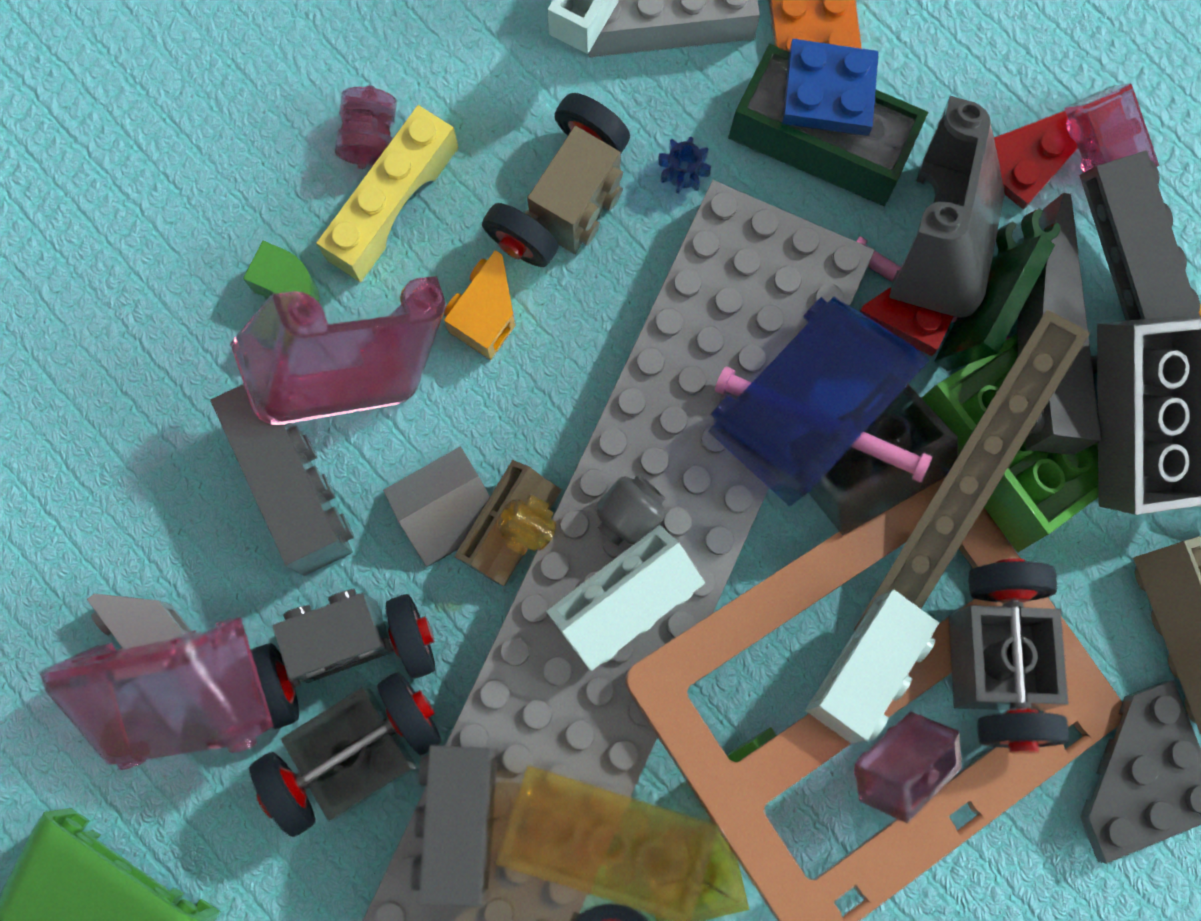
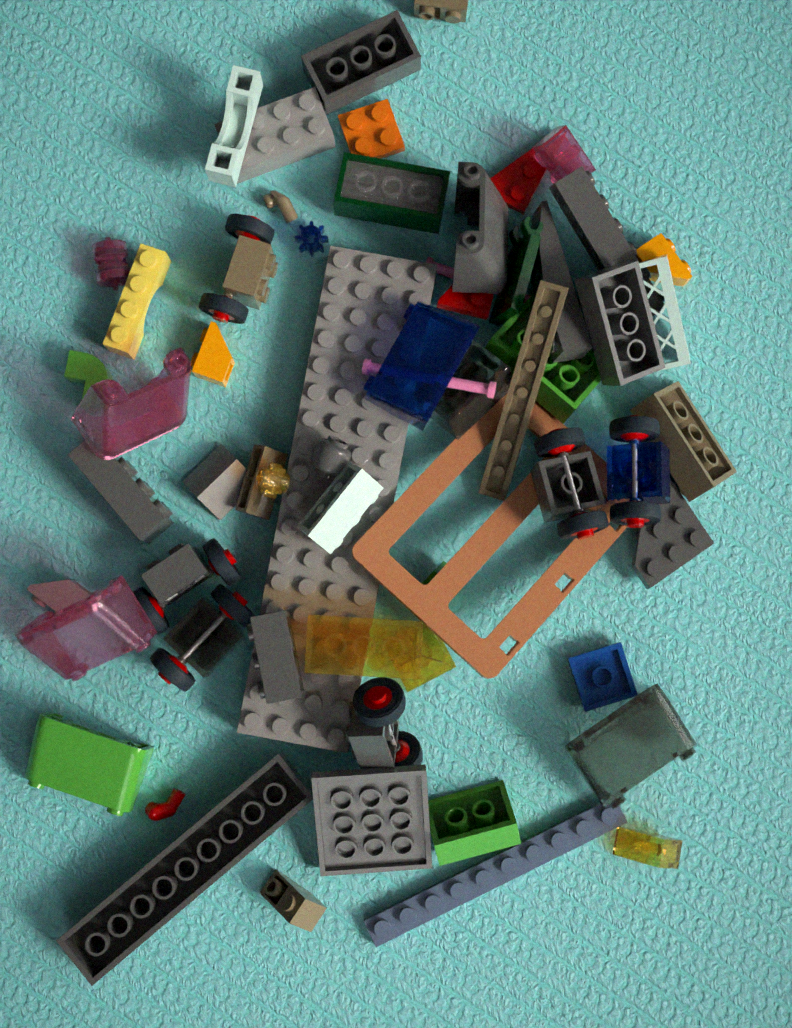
camera: 15 degrees left, 5 degrees up
(653, 100) = (277, 199): none -> dark tan arm
(830, 87) = (387, 171): blue plate -> none
(873, 668) = (492, 511): light aqua brick -> none
(908, 766) = (524, 562): clear pink brick -> none
(1129, 664) = (637, 472): none -> brick

